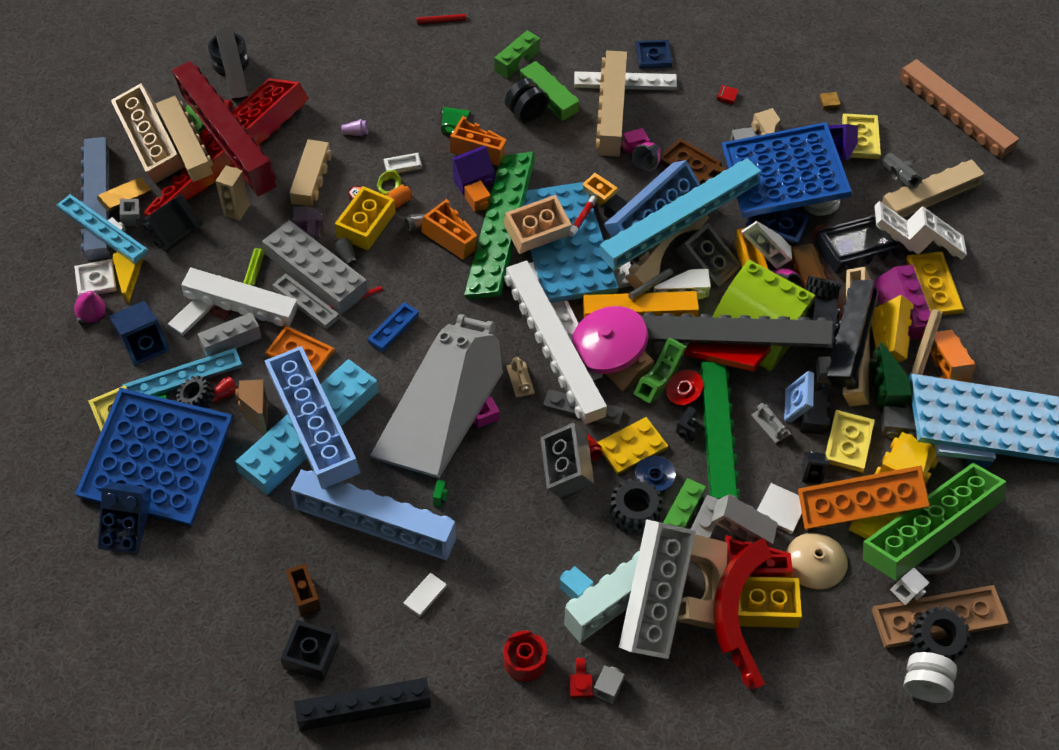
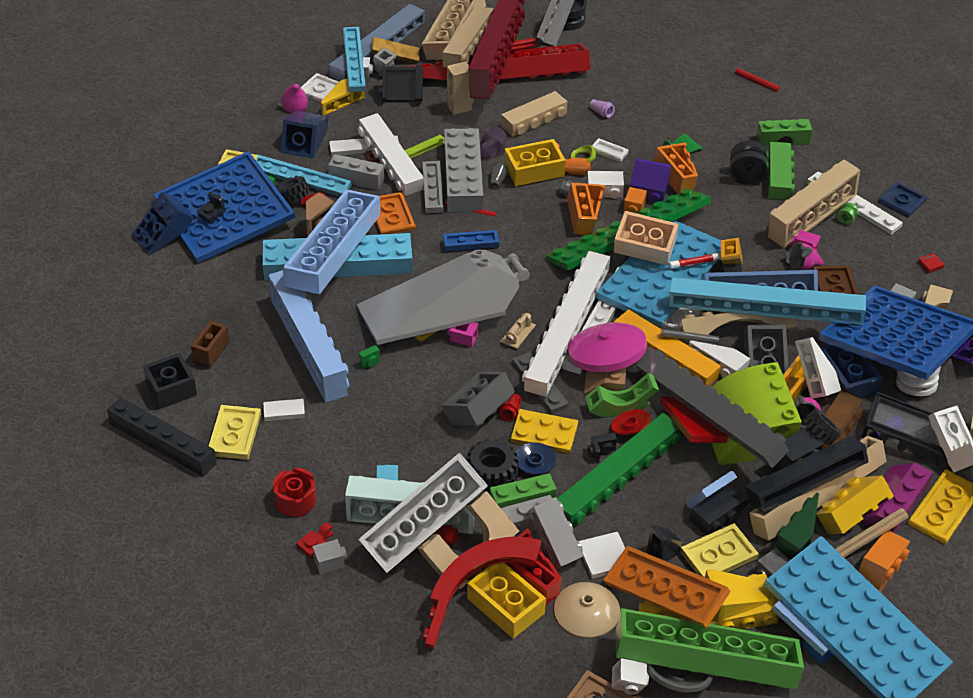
camera: 45 degrees right, 10 degrees down
(153, 466) = (212, 209): none -> black bracket
(412, 647) = (235, 431): none -> light yellow plate
(437, 193) = (611, 179): none -> white brick
(634, 93) = (847, 213): none -> bright green wheel
(770, 423) = (671, 494): light grey hinge -> none

